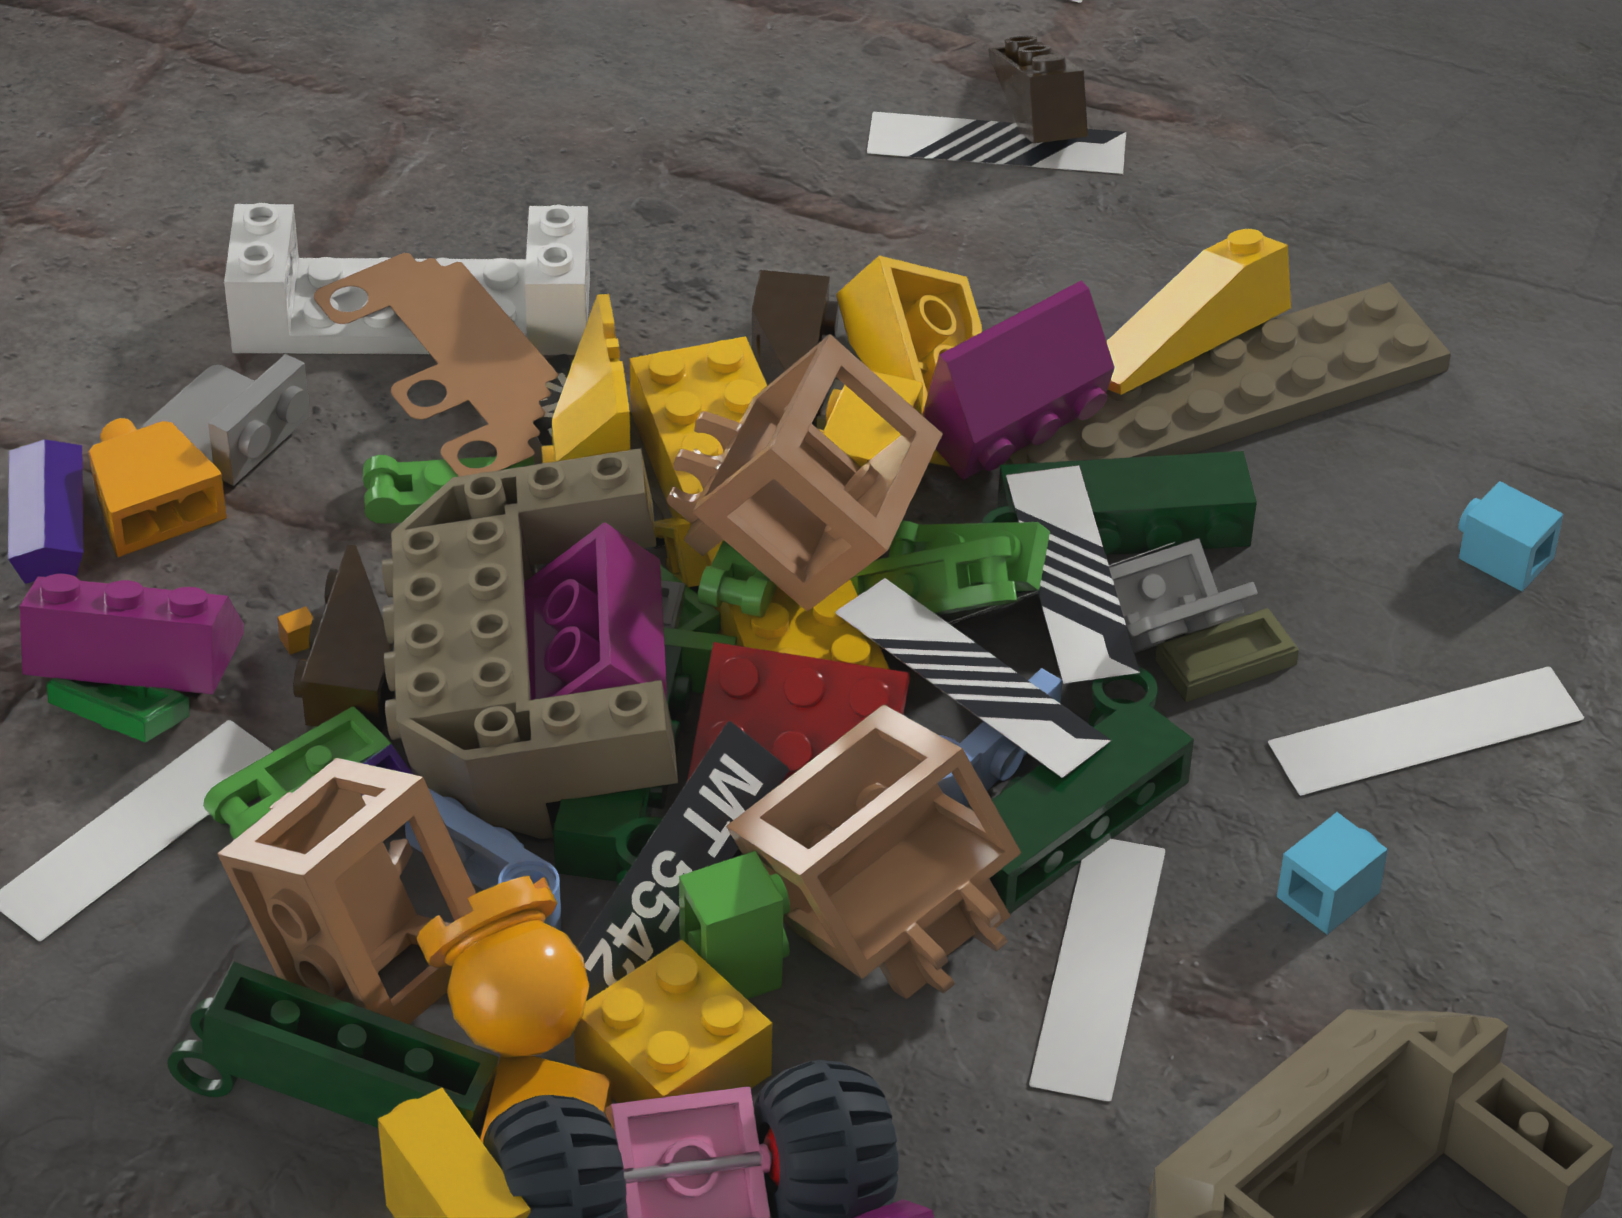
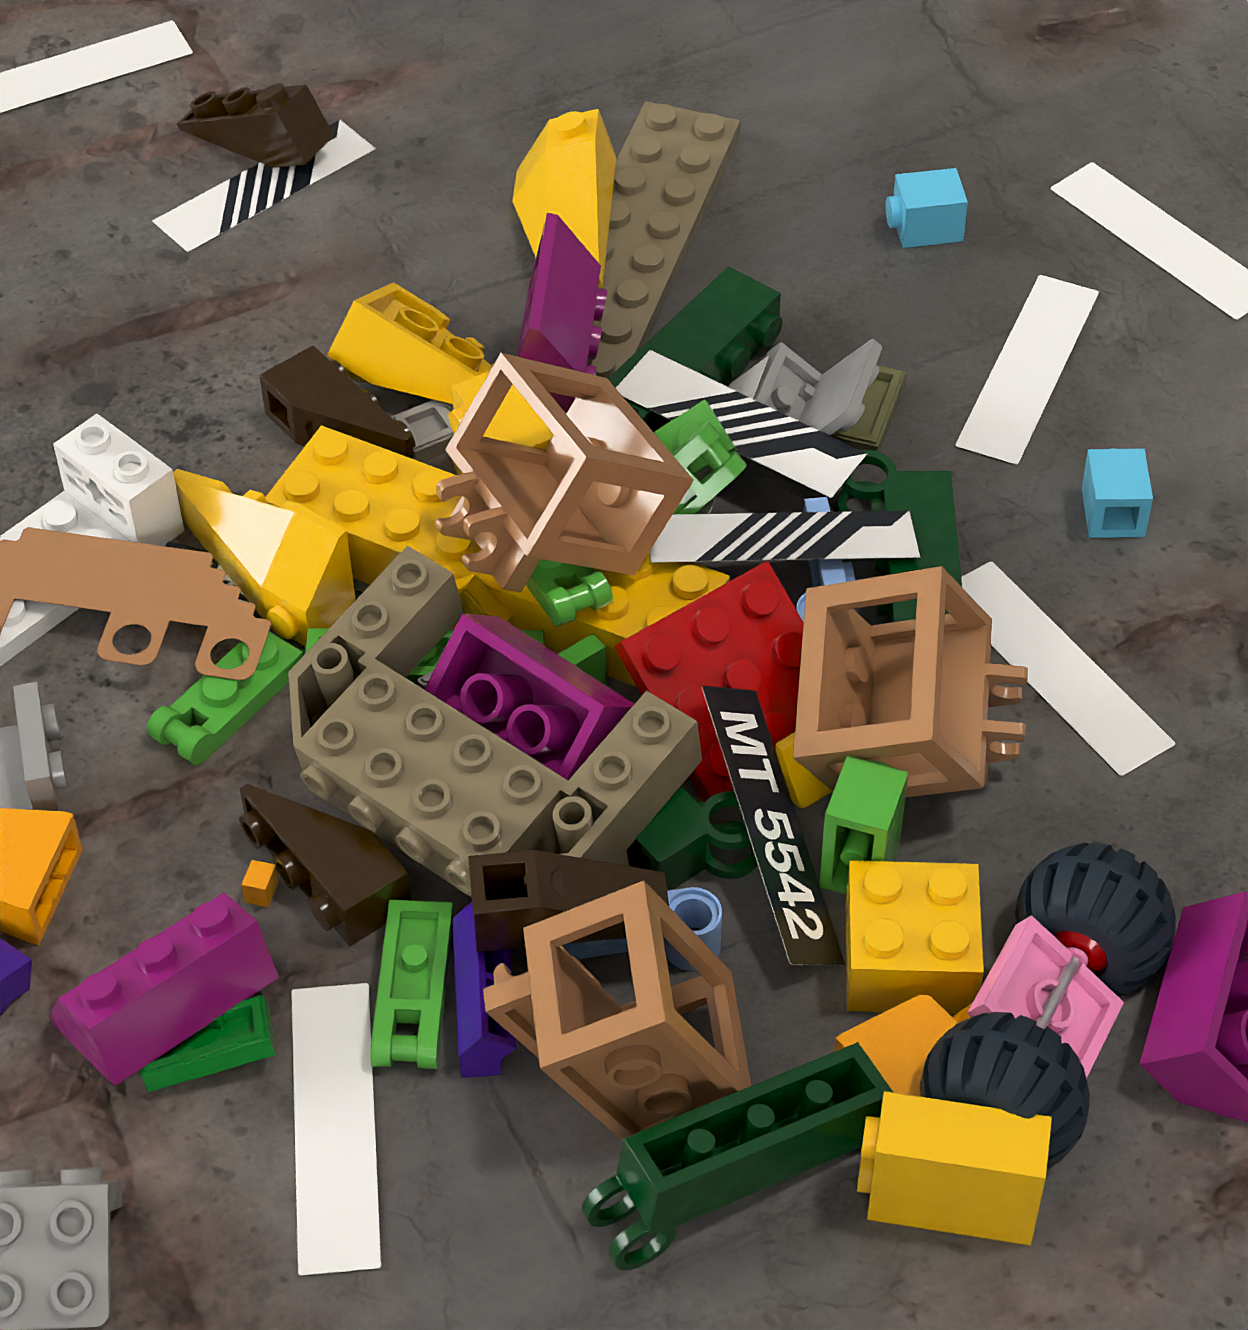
camera: 45 degrees left, 5 degrees up
(396, 738) = (534, 885): none -> dark brown slope
(512, 976) = (813, 974): light orange tile -> none

